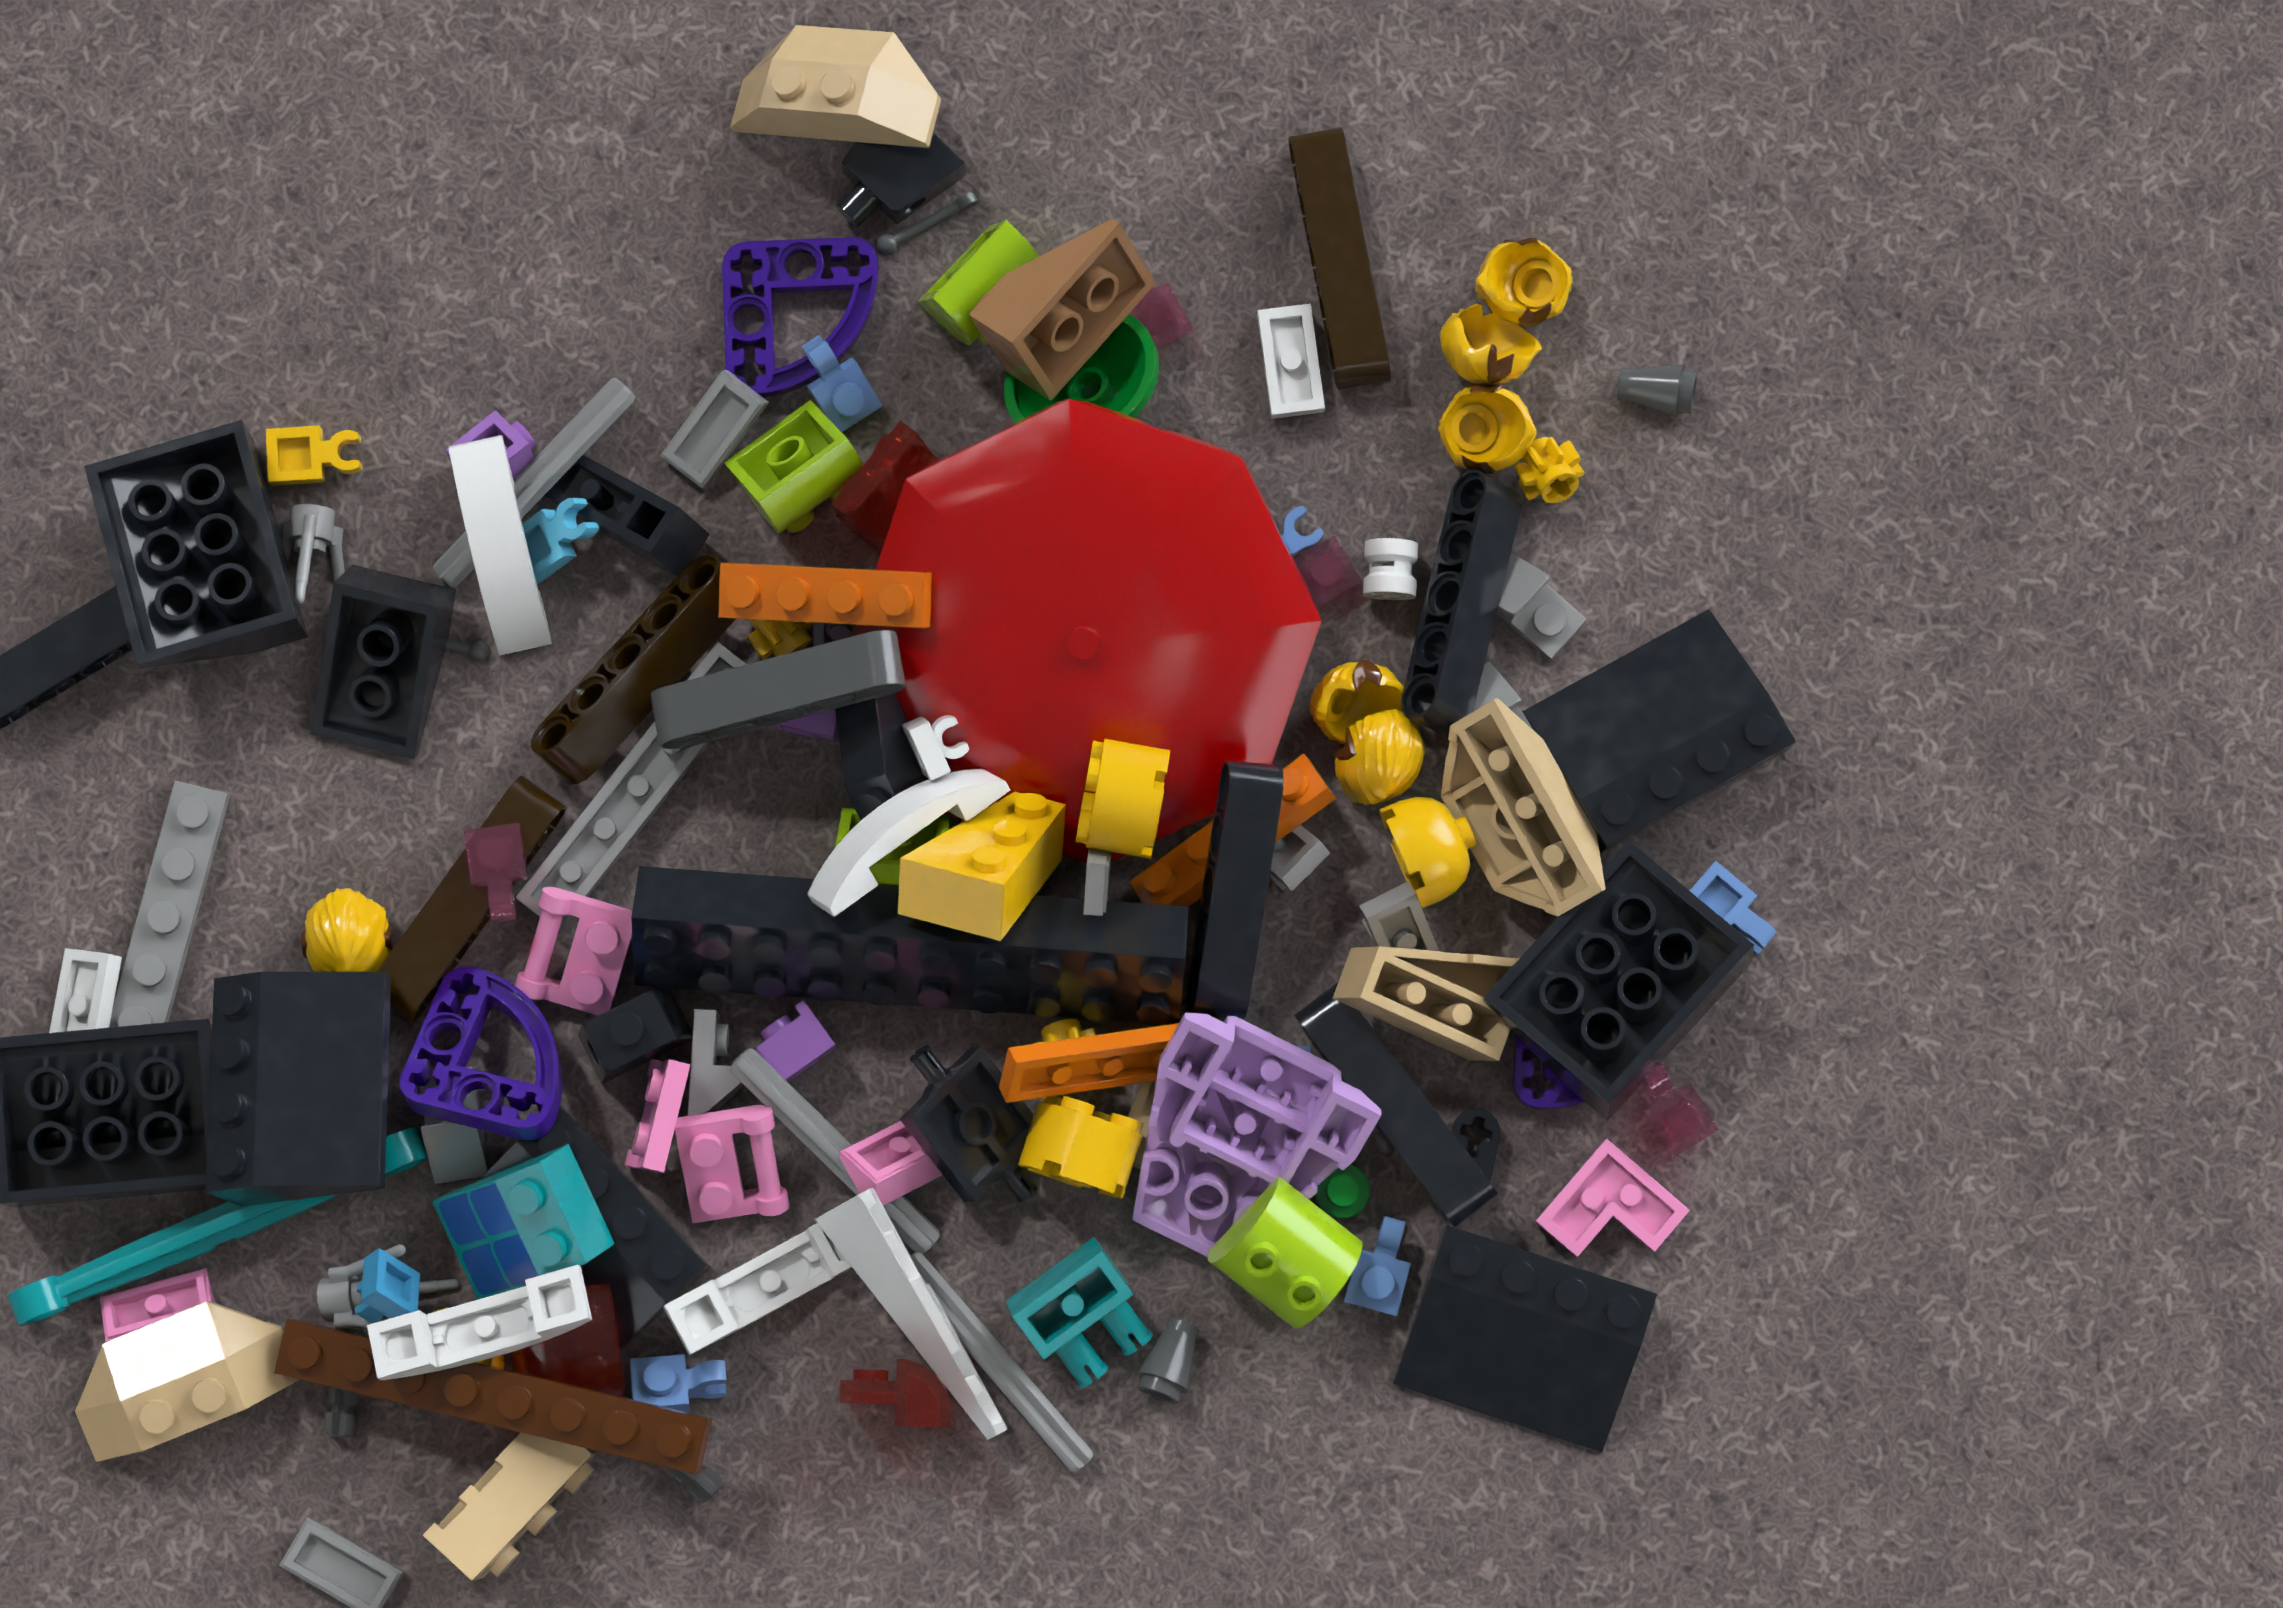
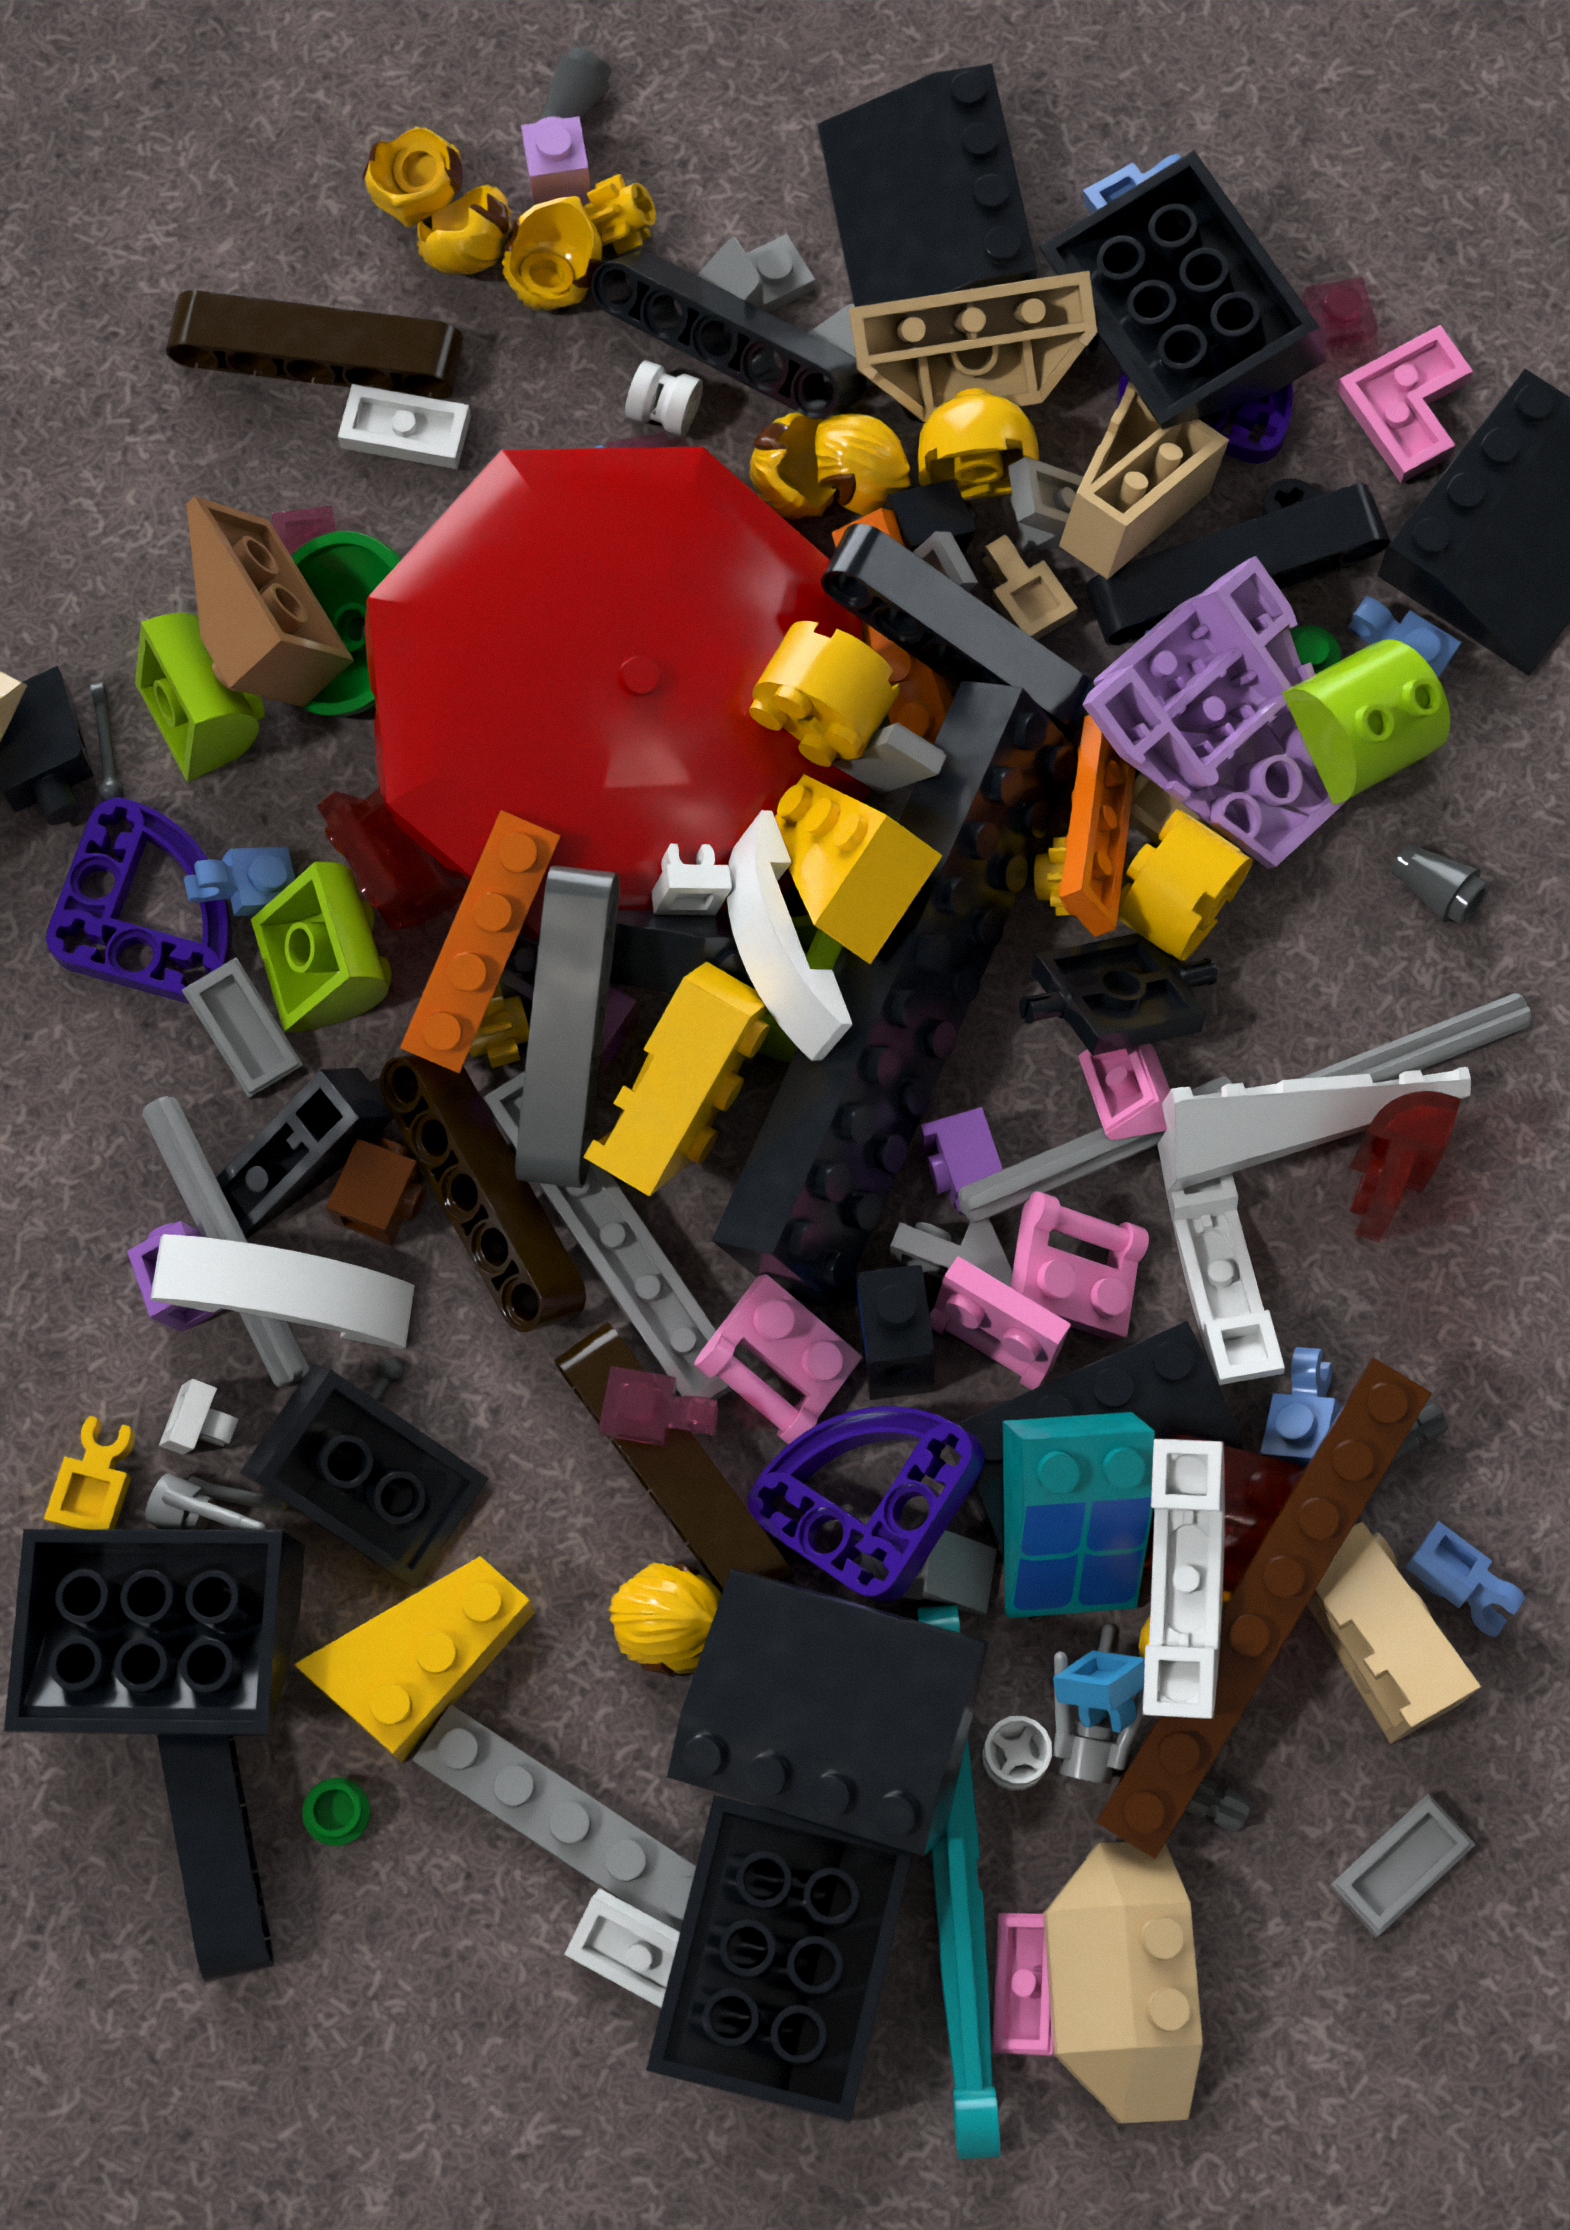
camera: 65 degrees left, 10 degrees down
(118, 737) = (336, 1812): none -> green plate
(249, 756) = (420, 1654): none -> yellow wedge
(317, 1239) = (1023, 1743): none -> white wheel
(382, 514) = (194, 1420): none -> white tile
(551, 535) = (293, 1227): medium azure plate -> none
(583, 1543) = (1460, 1574): none -> medium blue plate
(614, 587) = (377, 1190): none -> reddish brown brick
(764, 797) = (683, 1080): none -> yellow wedge
(1071, 1299) = (1345, 954): teal brick -> none
(1312, 939) = (1026, 595): none -> tan plate
(1347, 833) = (932, 510): none -> black brick
(1580, 398) = (556, 159): none -> lavender brick

